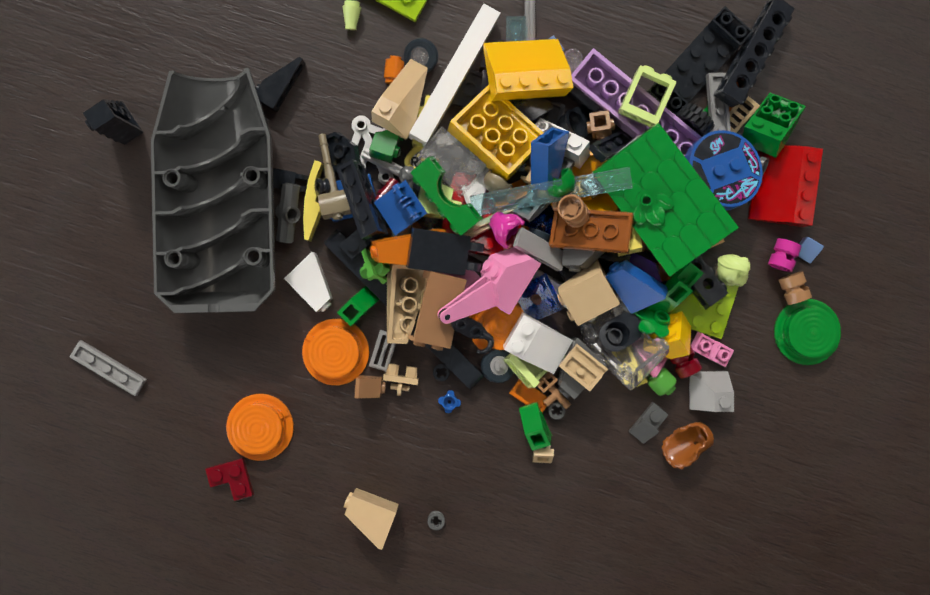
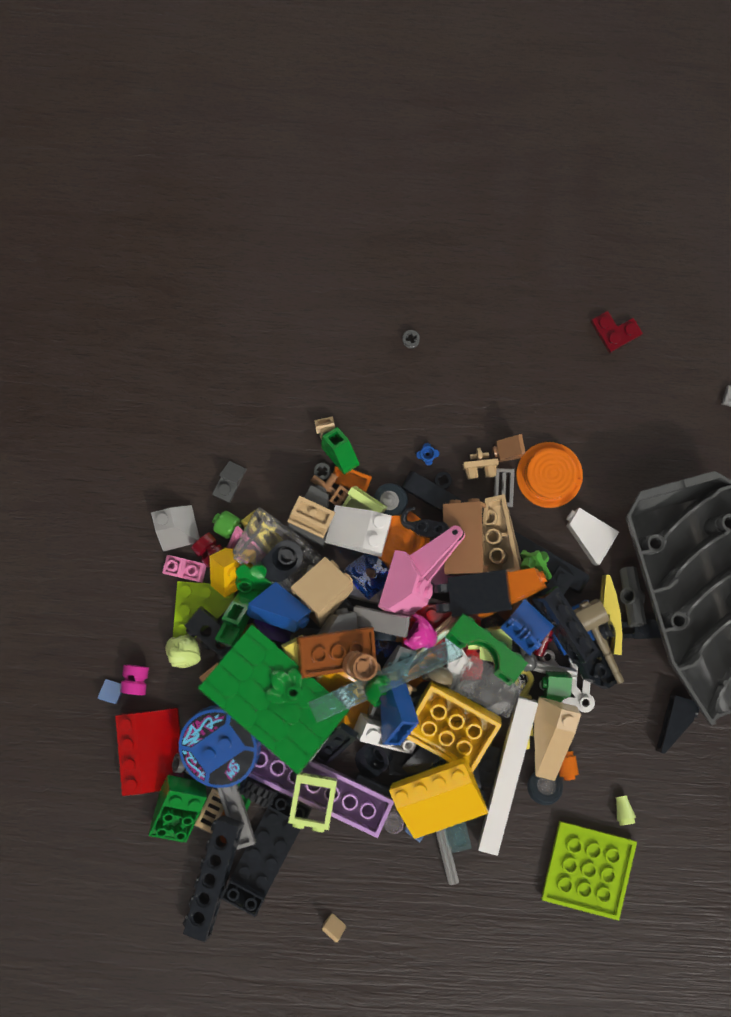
camera: 165 degrees right, 5 degrees down
(260, 427) = (602, 385): orange piece -> none
(358, 306) = (540, 523): green slope -> none
(371, 515) = (475, 328): tan slope -> none
(600, 124) = (354, 765): medium nougat brick -> none
(680, 446) = (192, 465): dark orange piece -> none
(795, 288) = (116, 649): medium nougat wheel -> none
(807, 332) = (92, 610): green piece -> none

